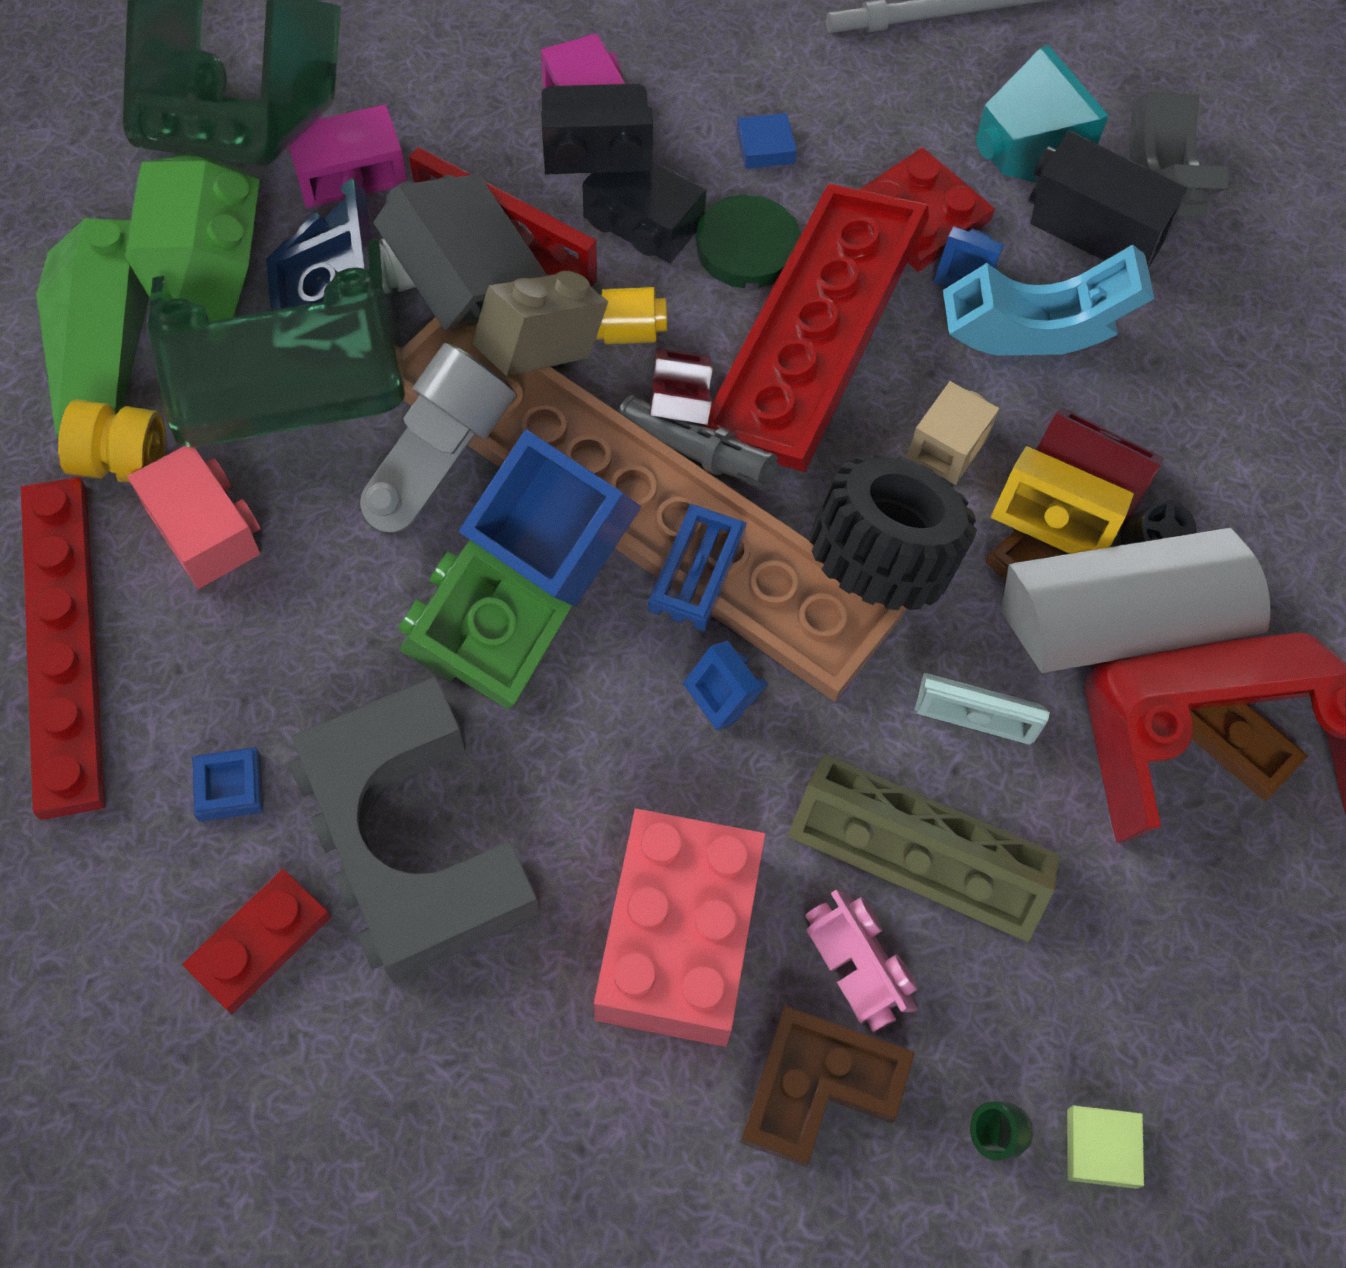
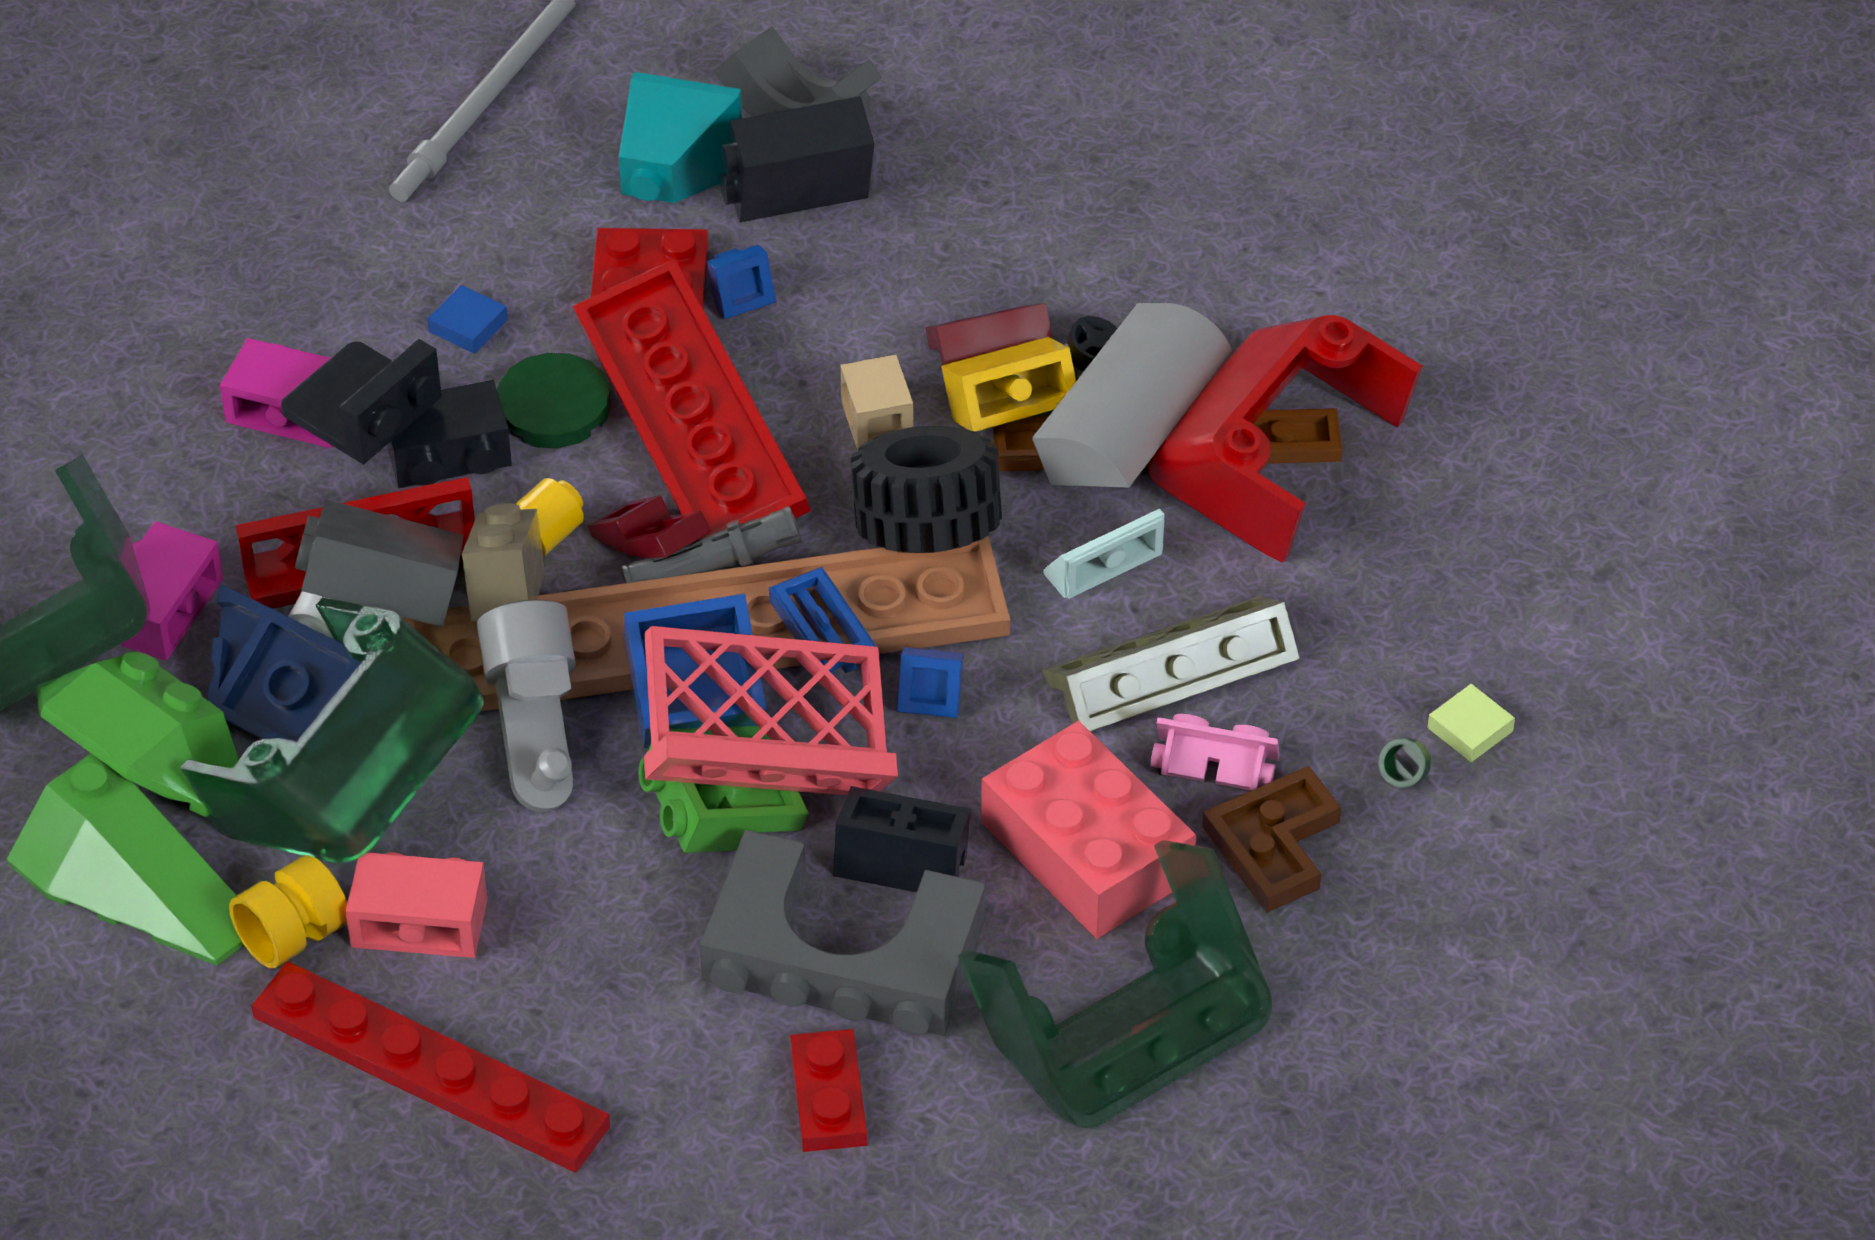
camera: 45 degrees left, 15 degrees down
(227, 784) = (677, 1034): blue tile -> none
(504, 1140) = (1152, 1031): none -> clear green windscreen
(513, 642) = (757, 761): none -> coral fence
(544, 792) = (897, 838): none -> black hinge
(1049, 319) = (849, 270): medium azure arch -> none

